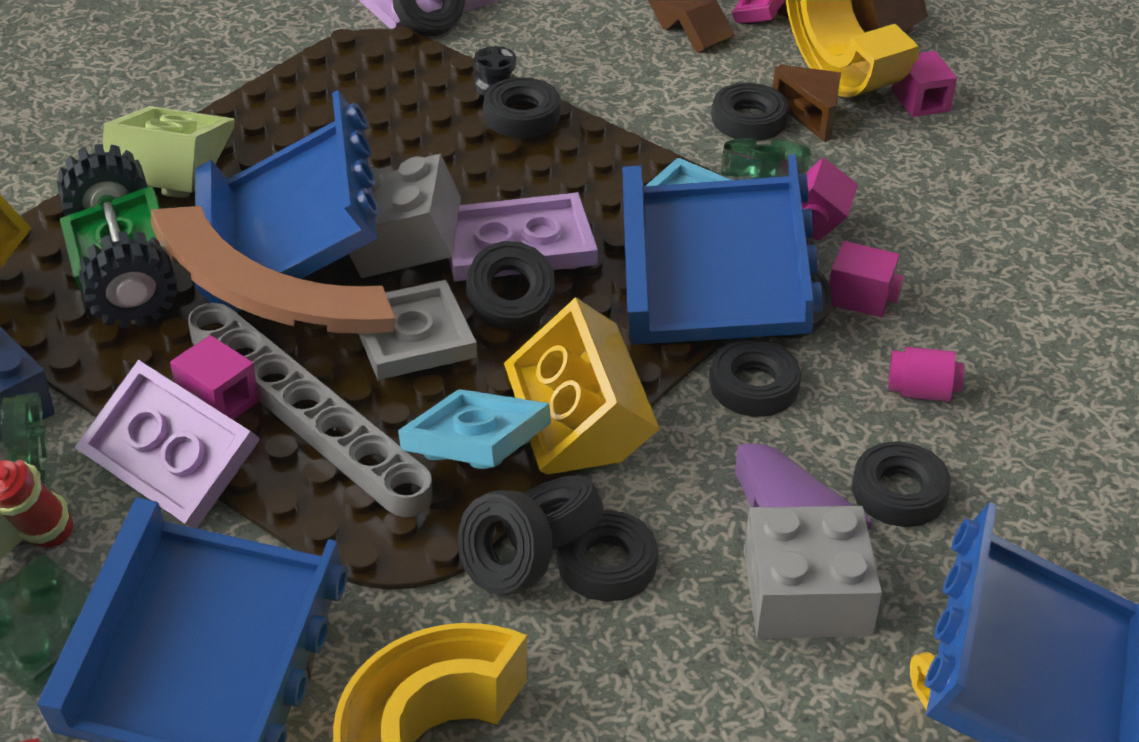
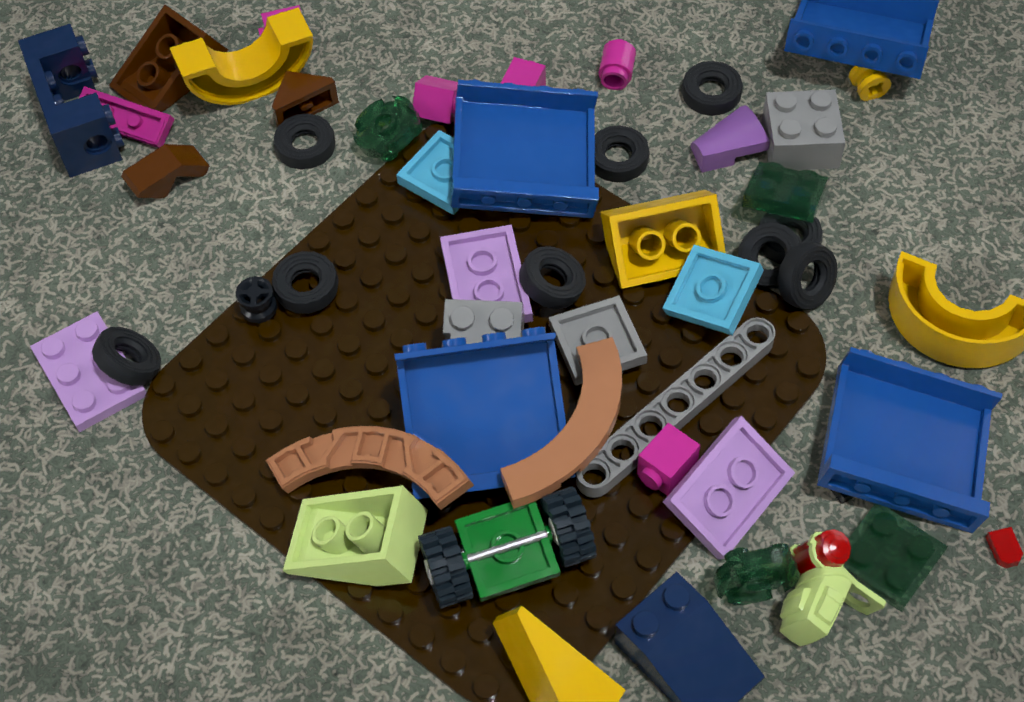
camera: 85 degrees left, 15 degrees up
(273, 128) = (371, 449): none -> nougat tile
(680, 543) = (785, 191): none -> clear green plate

